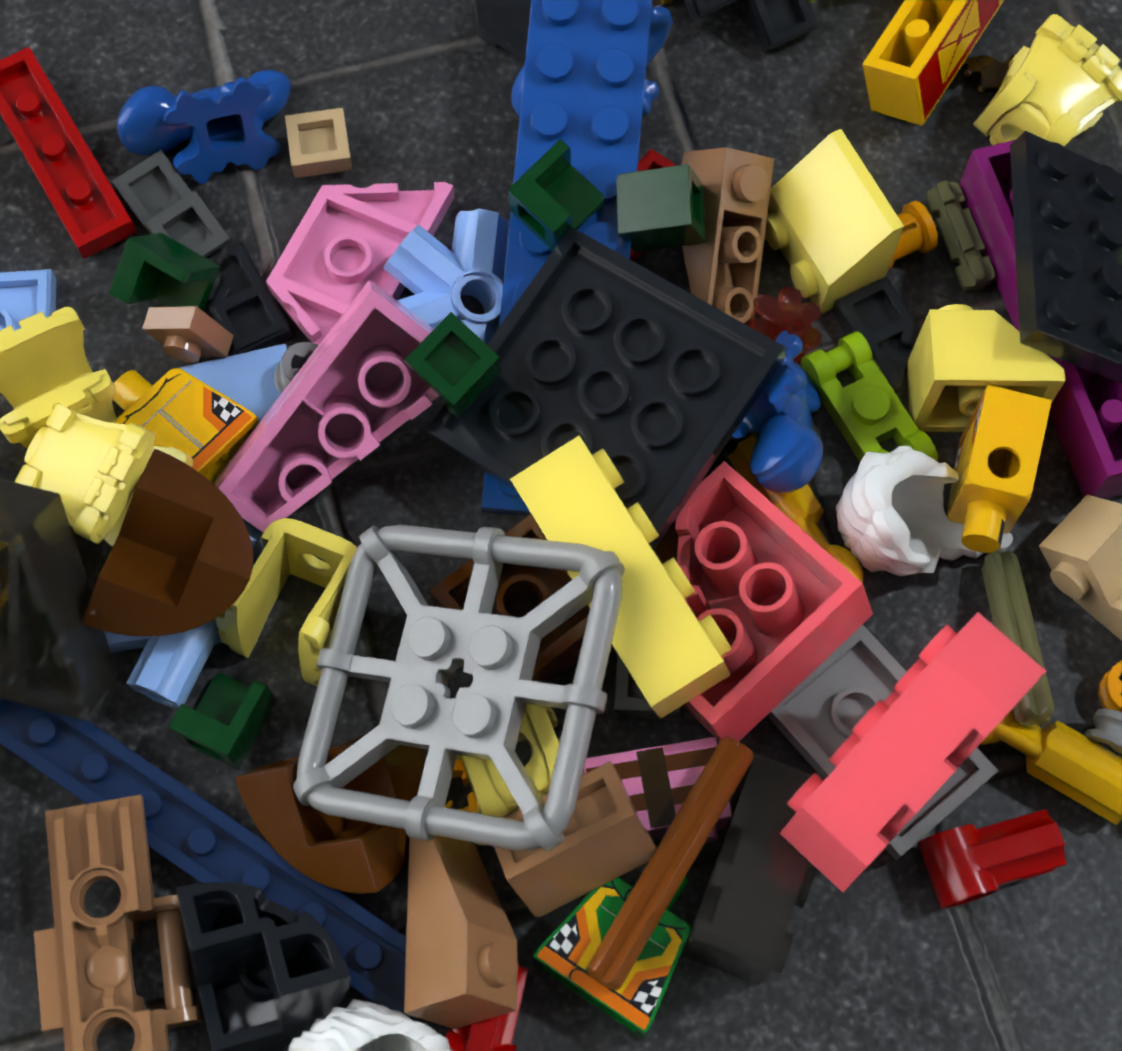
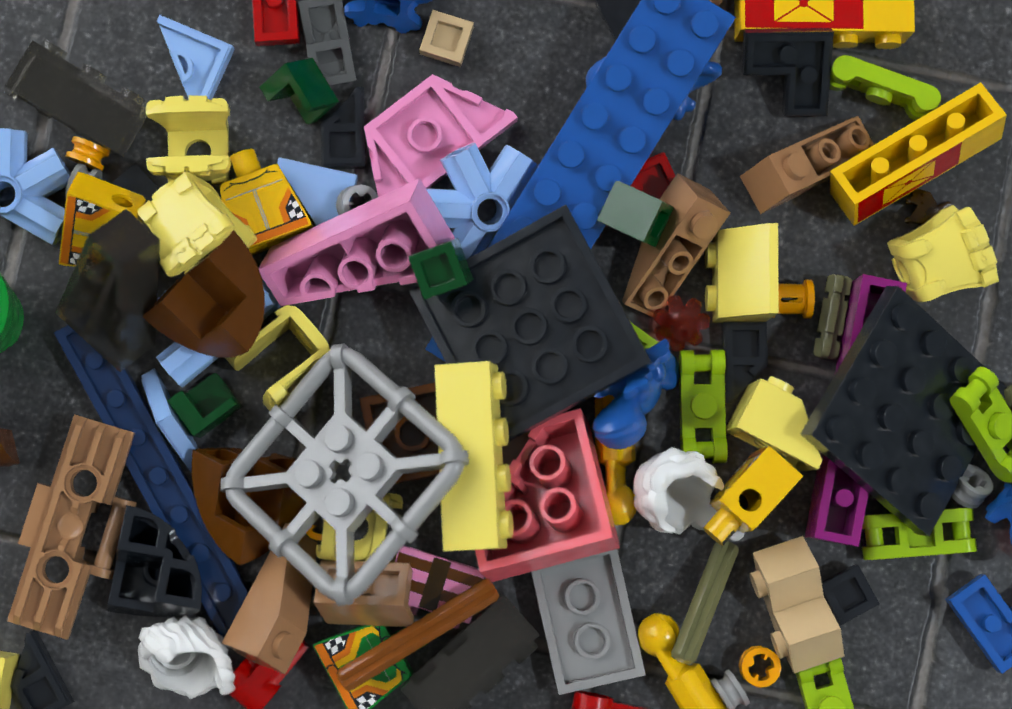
camera: 20 degrees right, 15 degrees up
(185, 759) = (167, 418): none -> light blue tile
(187, 333) = (296, 141): medium nougat plate -> none
(554, 196) = (568, 178): dark green panel -> none
(820, 87) = (804, 164): none -> medium nougat slope
(908, 747) = (574, 650): coral brick -> none

